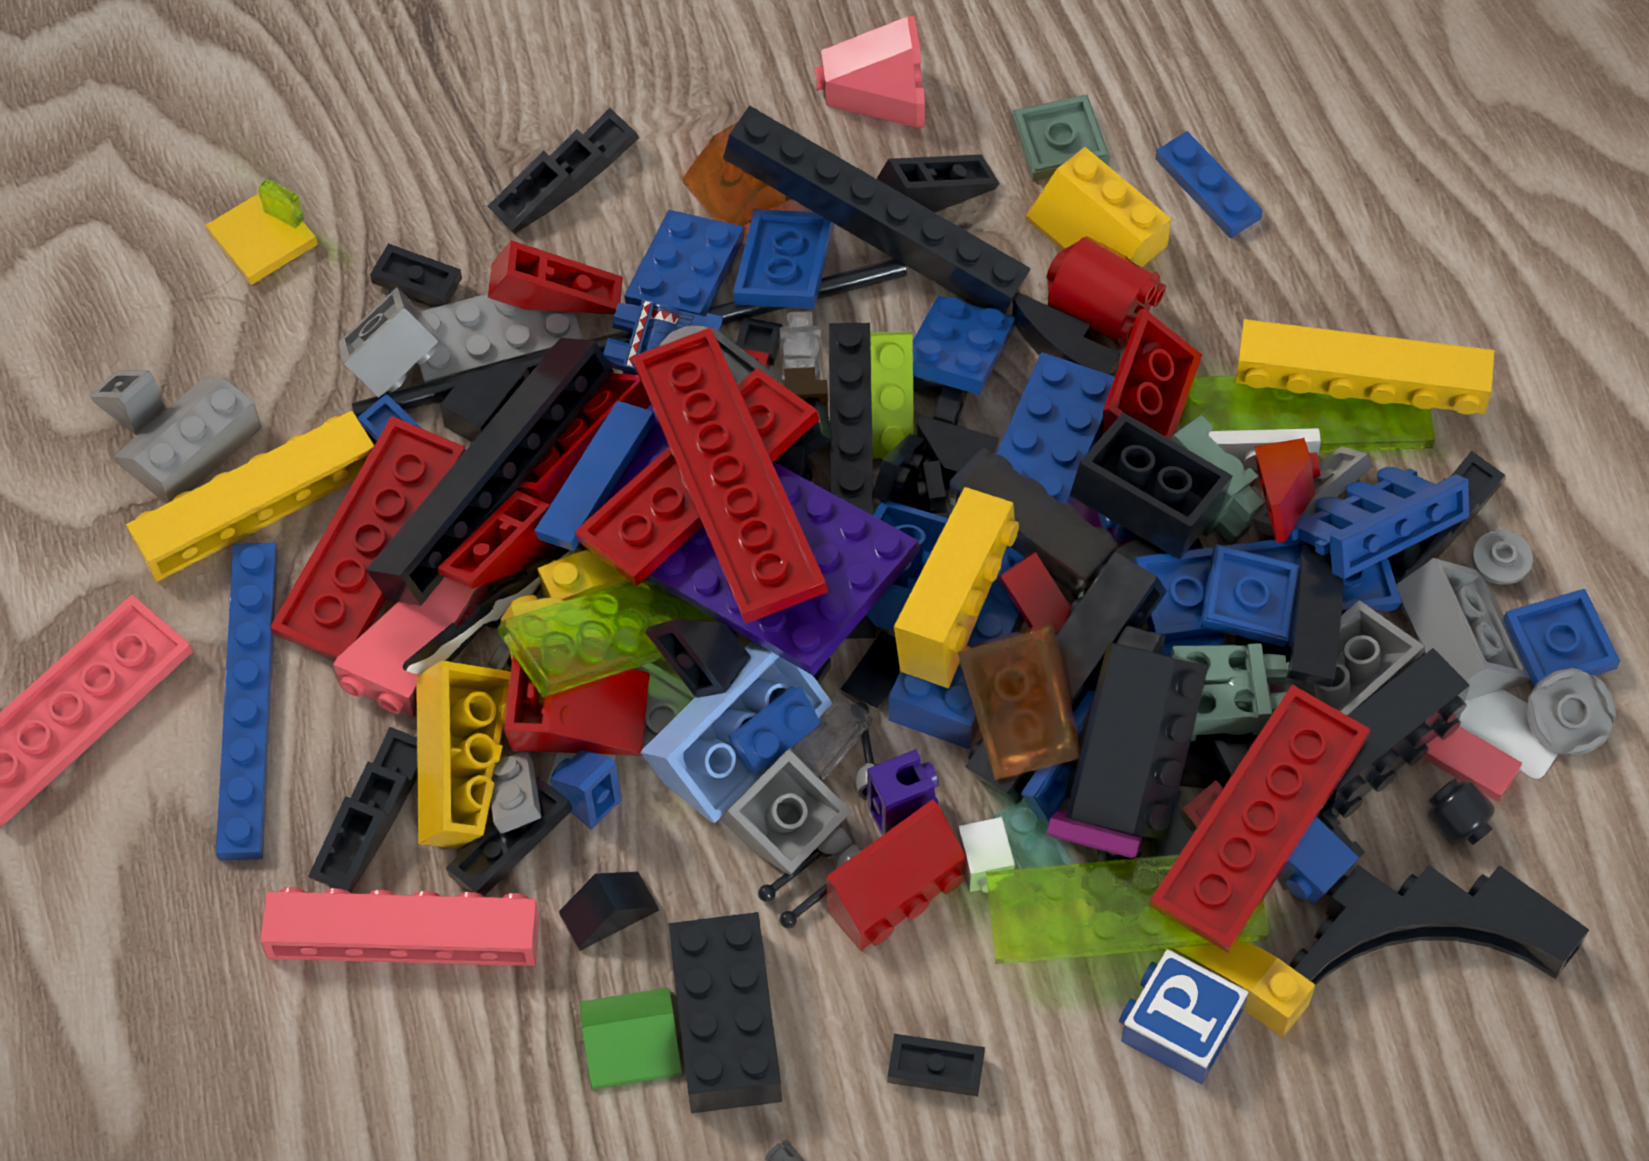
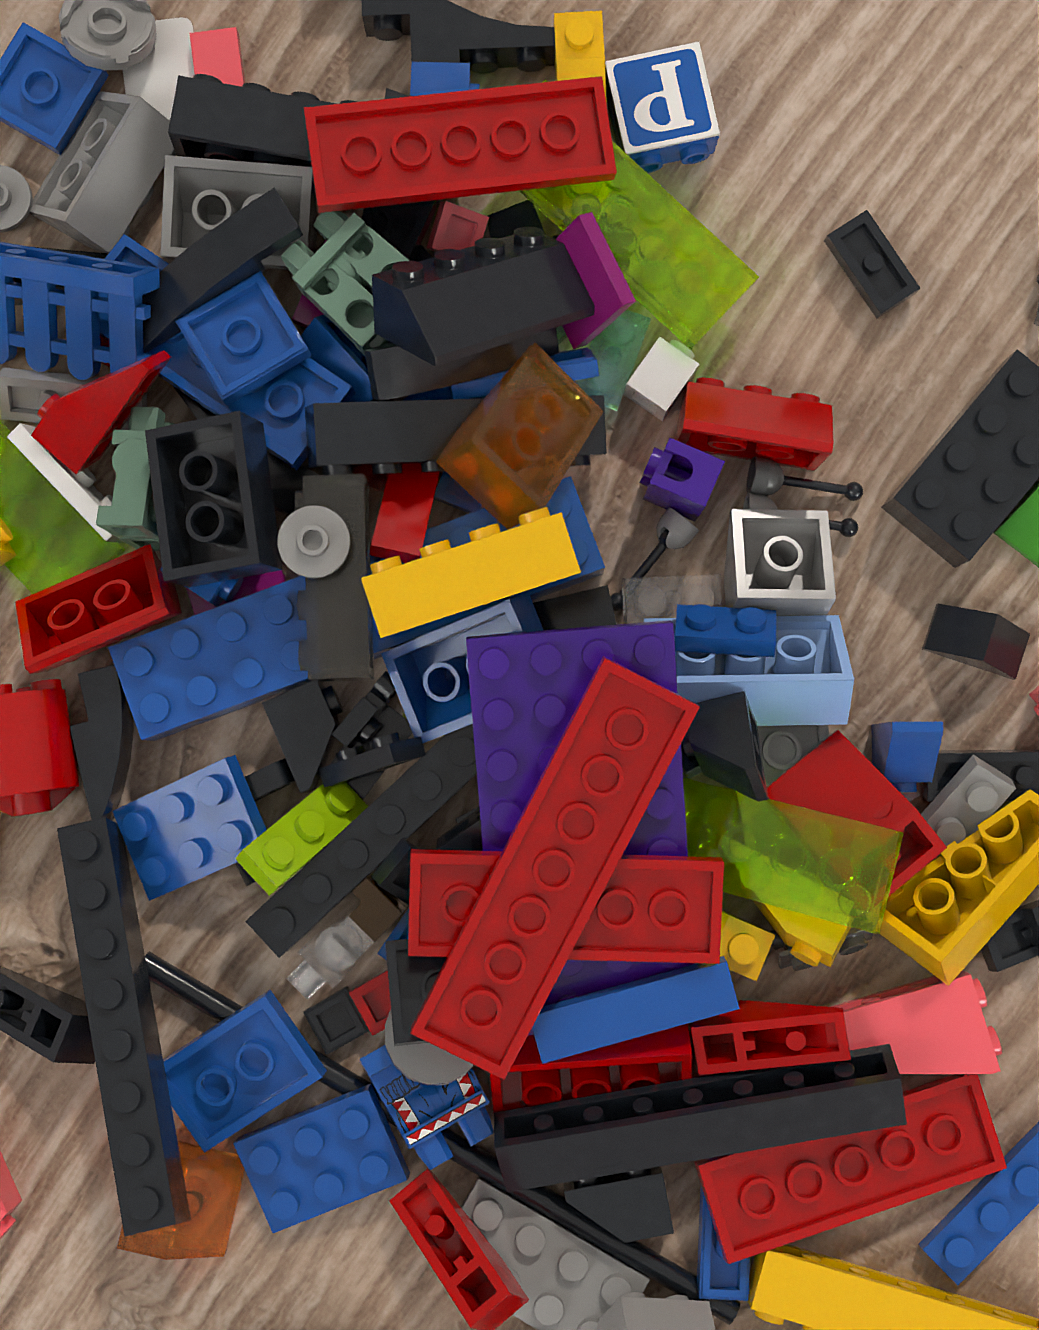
camera: 130 degrees left, 25 degrees up
(488, 613) = (827, 989): black sword -> none
(1065, 510) = (314, 541): none -> light grey piece
(1461, 812) = (282, 40): black head -> none

